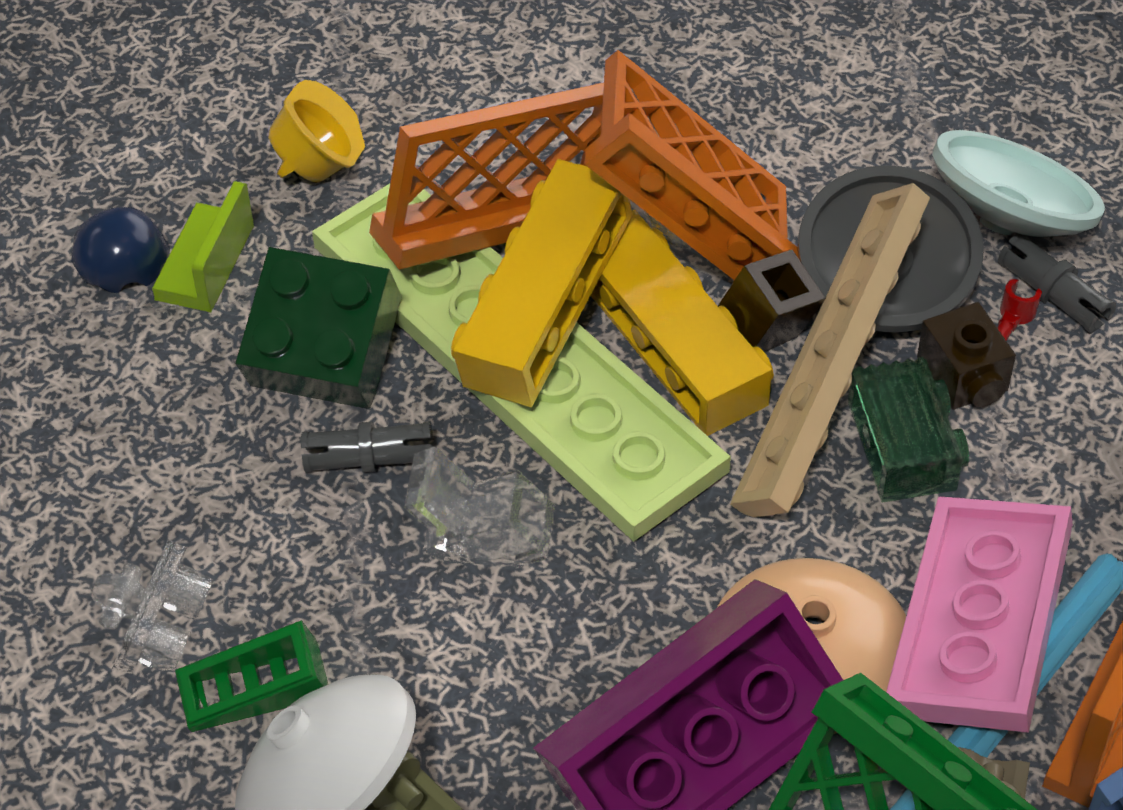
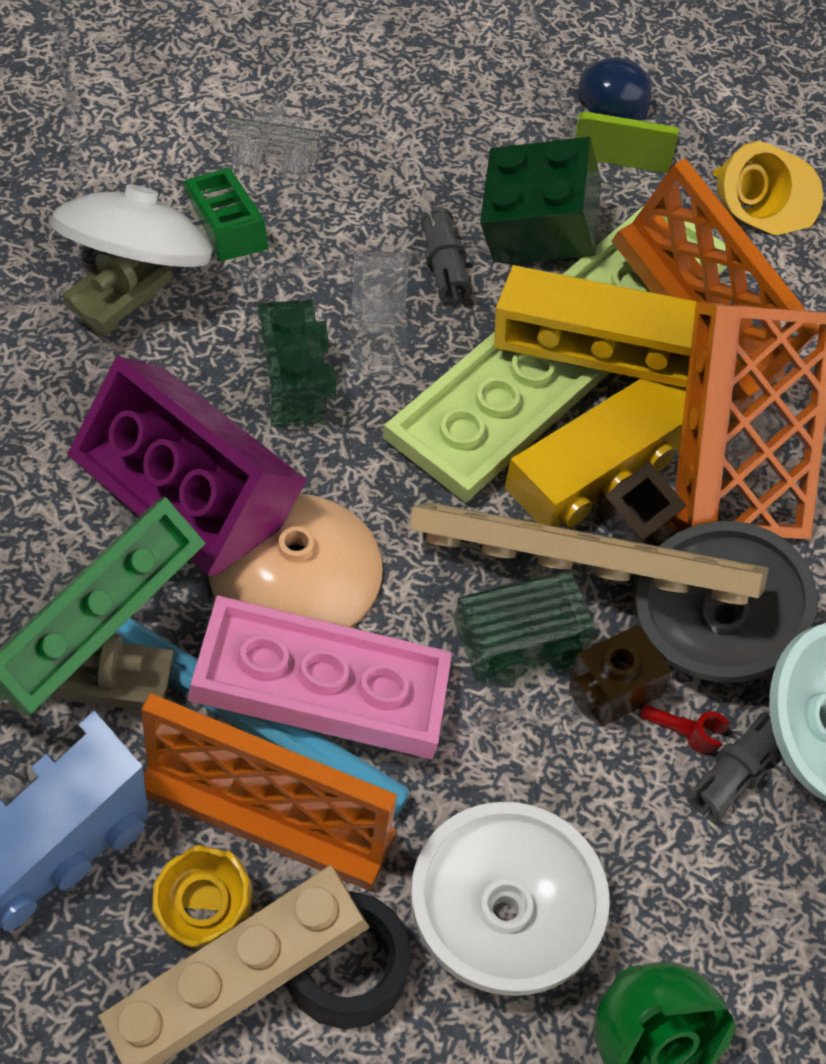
camera: 75 degrees right, 5 degrees up
(536, 609) = (293, 363): none -> clear green brick

